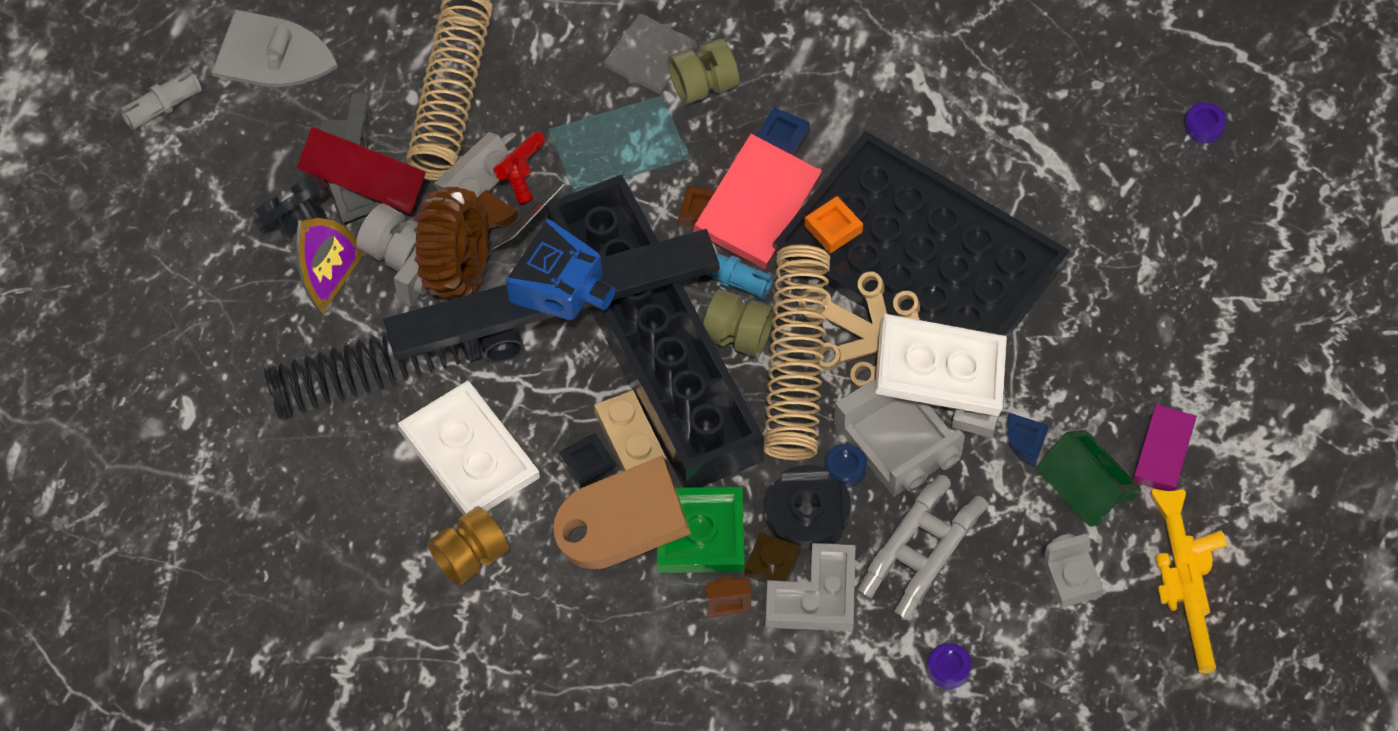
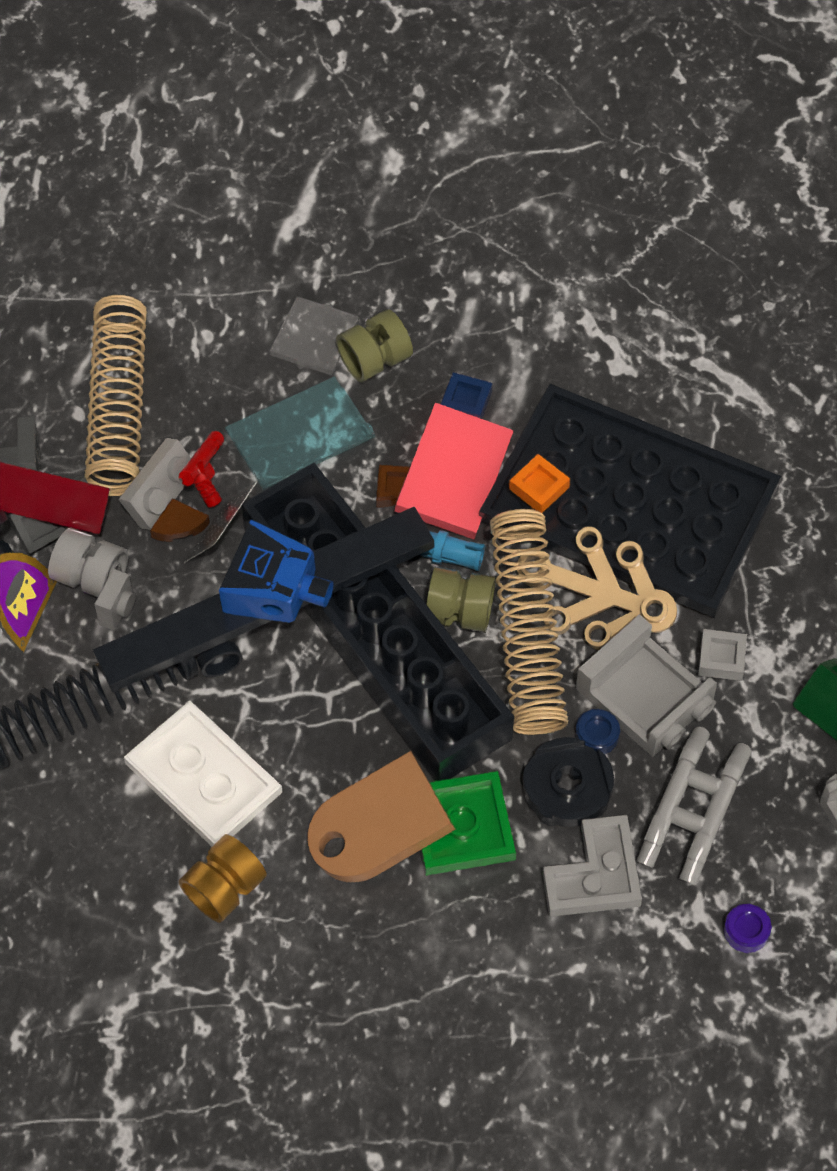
camera: 10 degrees left, 0 degrees up
(452, 242) = (149, 558): reddish brown gear -> none
(587, 461) = (330, 767): black tile -> none
(628, 430) = (367, 730): tan plate -> none
(727, 596) = (505, 890): reddish brown plate -> none
(772, 559) = (542, 843): dark brown plate -> none
(941, 365) = (678, 613): white tile -> none
(1025, 437) = (774, 675): dark blue tile -> none

